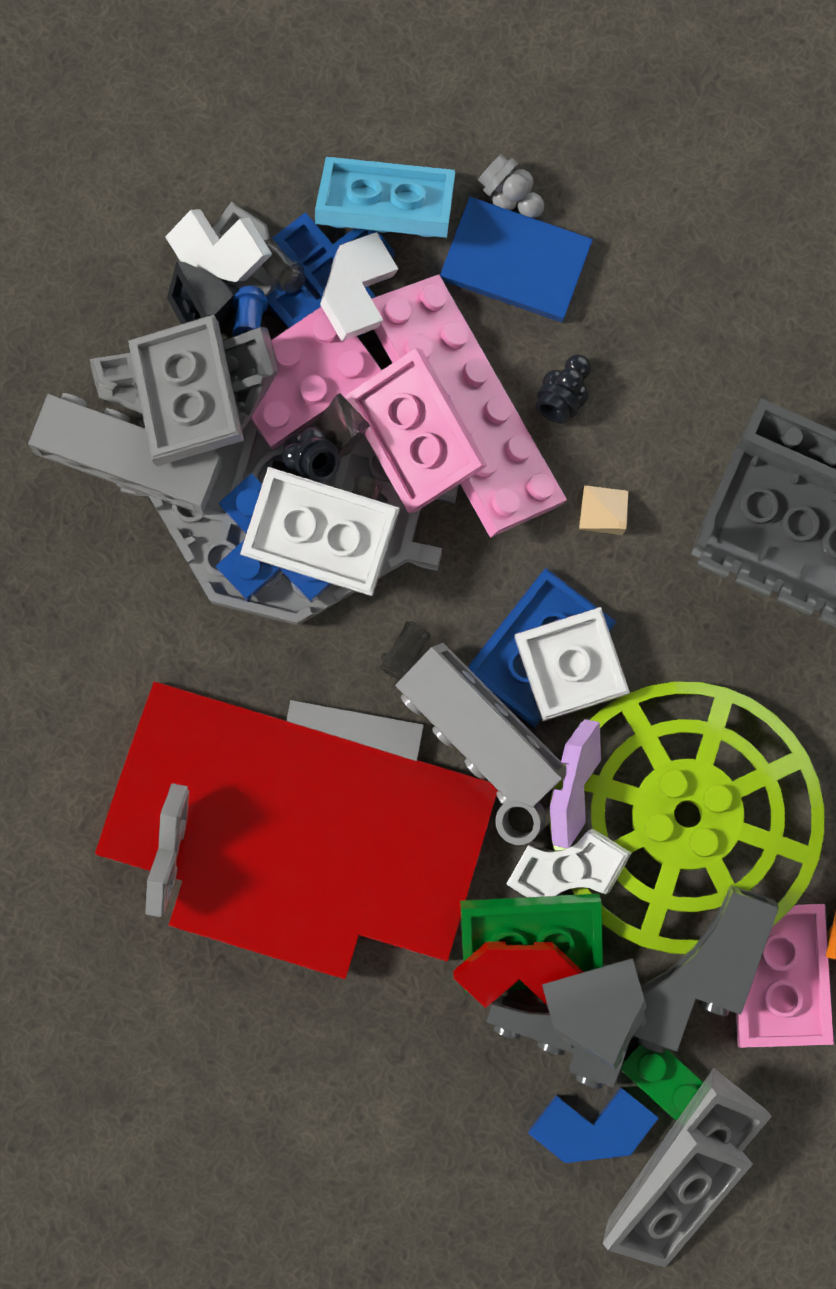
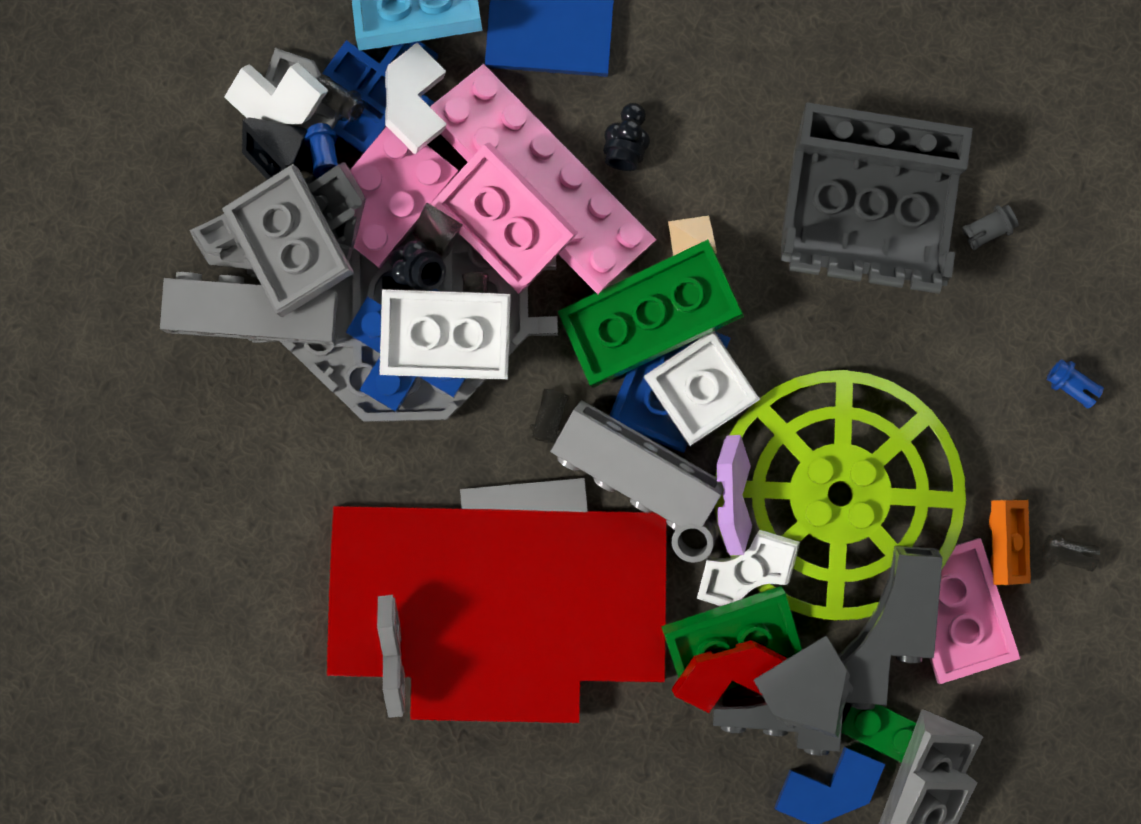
camera: 15 degrees left, 5 degrees up
(539, 572) = (650, 313): none -> green plate

